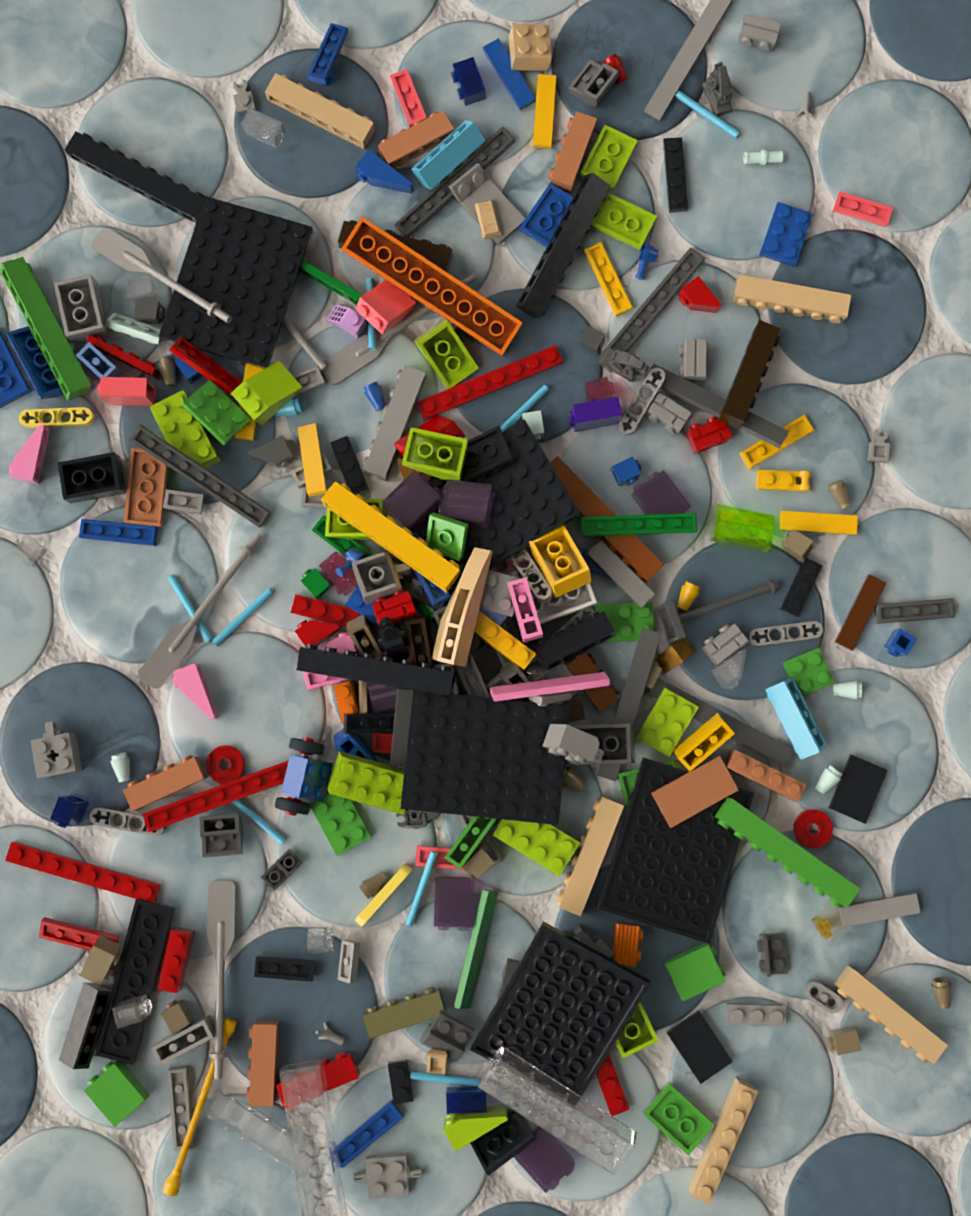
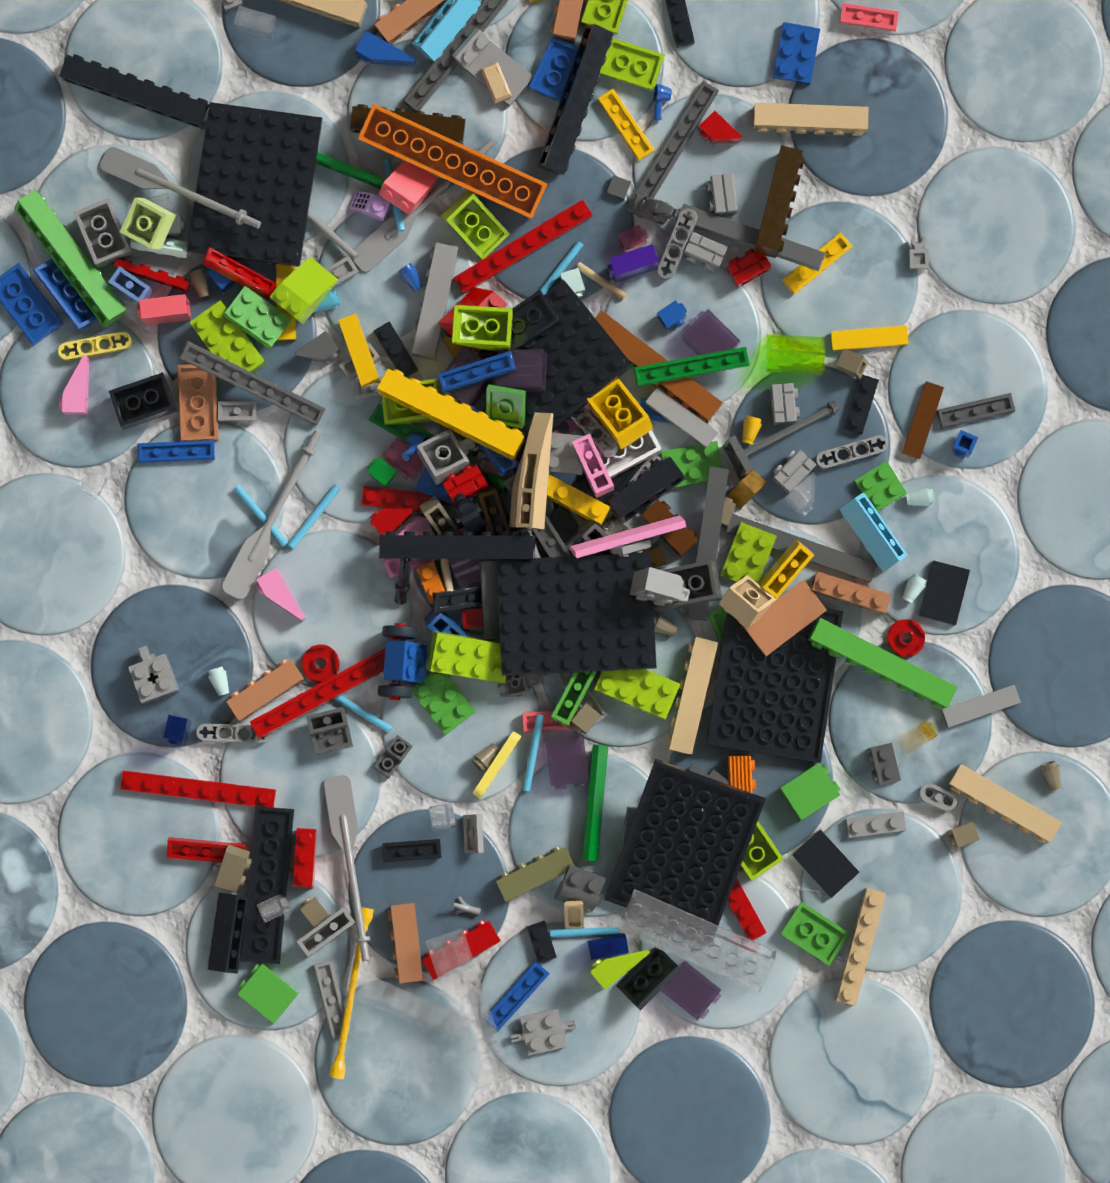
camera: 15 degrees left, 0 degrees up
(122, 303) = (147, 223): none -> yellowish green brick
(317, 698) = (402, 585): none -> black pin
(423, 498) = (477, 372): none -> blue tile
(561, 427) = (600, 280): none -> tan bar
(660, 770) = (747, 601): none -> tan slope
(723, 575) = (783, 404): none -> light grey brick
(783, 480) = (828, 301): yellow plate -> none
(840, 494) = (886, 306): dark tan cone -> none

